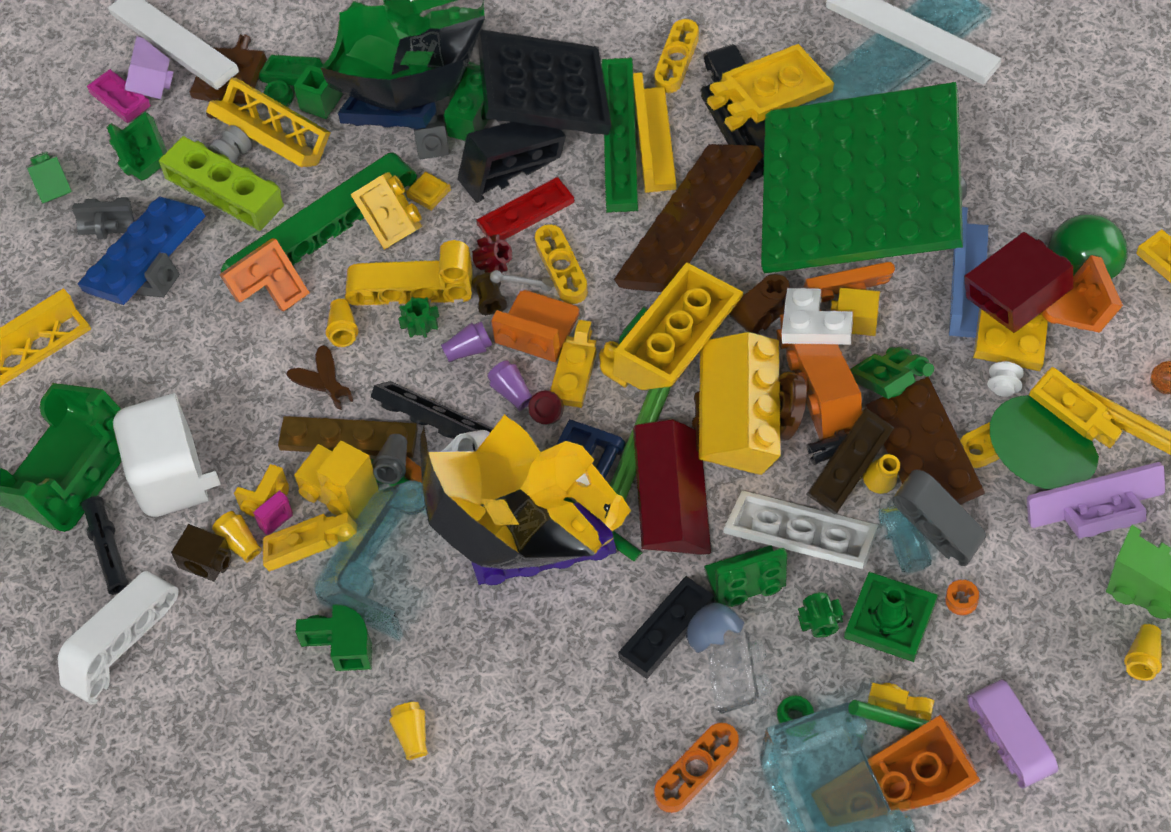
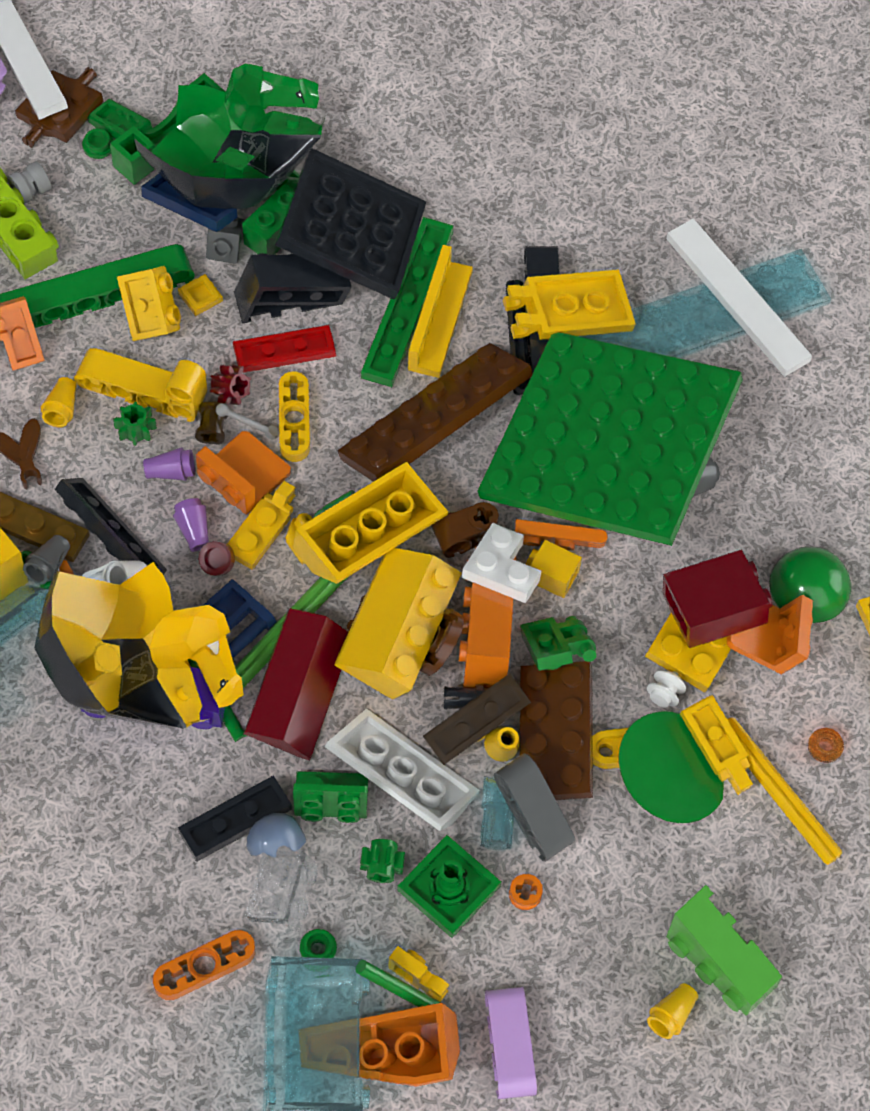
camera: 10 degrees right, 5 degrees up
(262, 131) = (71, 180): yellow fence -> none
(674, 45) = (499, 225): yellow beam -> none
(974, 251) = (690, 547): medium blue fence -> none
(1100, 502) = (699, 848): lavender bracket -> none

